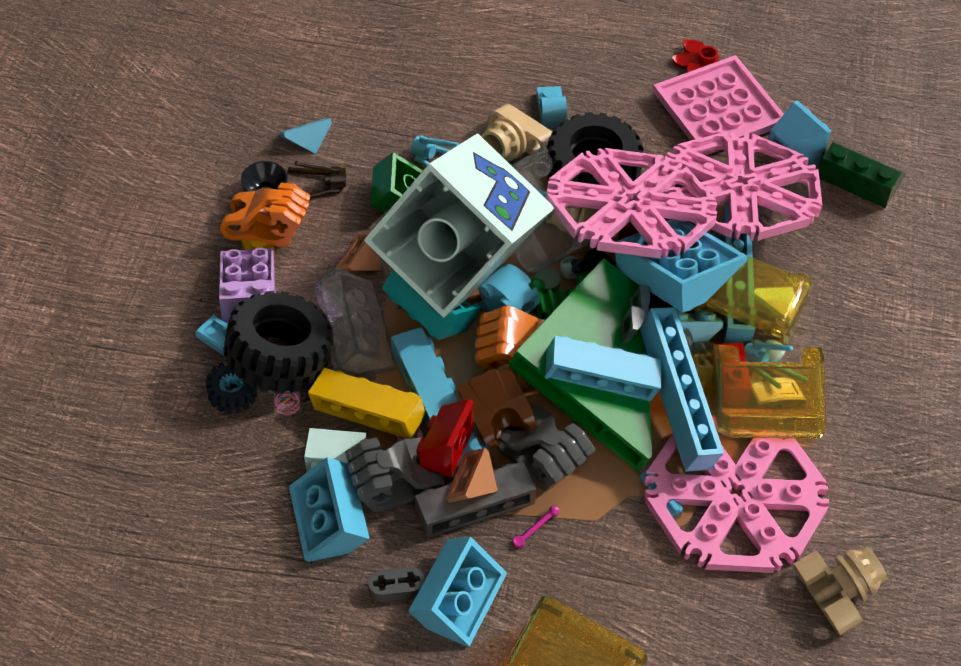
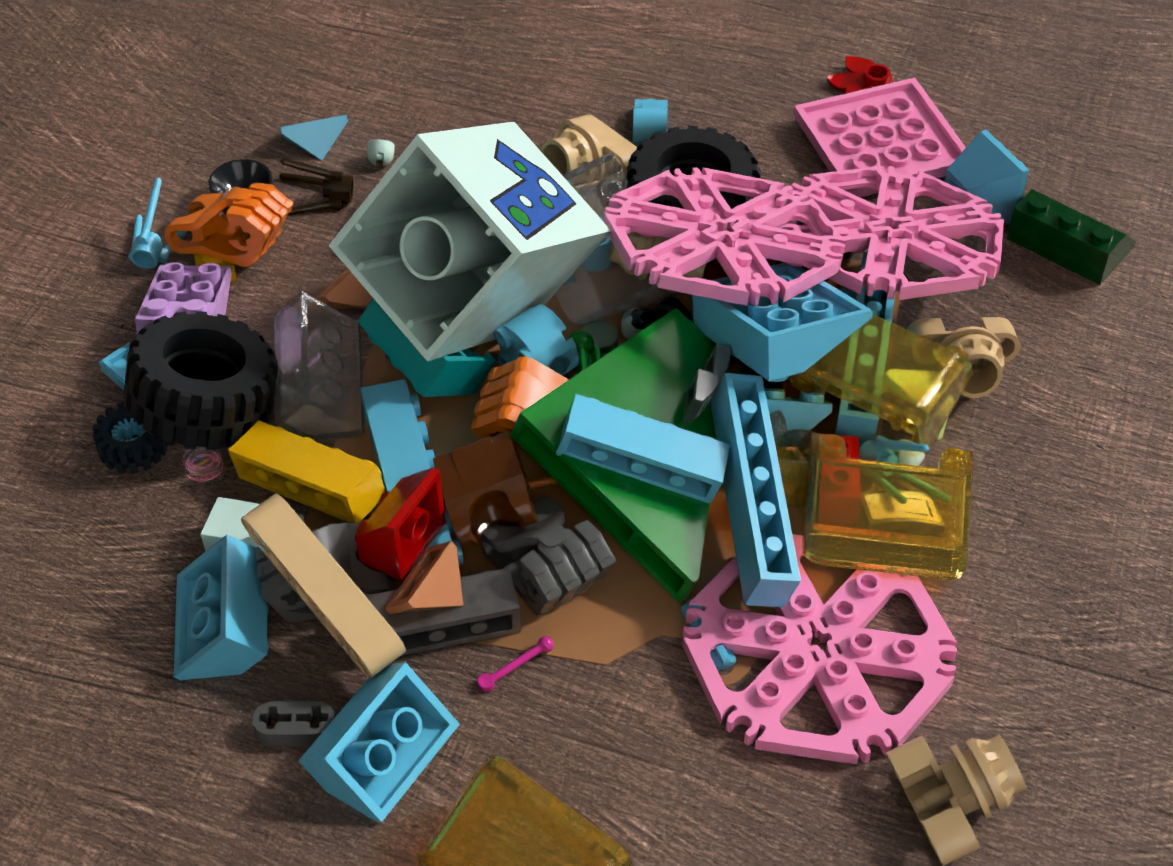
camera: 10 degrees right, 5 degrees down
(205, 238) = (147, 245): none -> medium azure plant
(359, 144) = (380, 151): none -> light aqua hinge
(405, 488) = (323, 585): none -> tan beam
(817, 265) = (981, 345): none -> tan beam

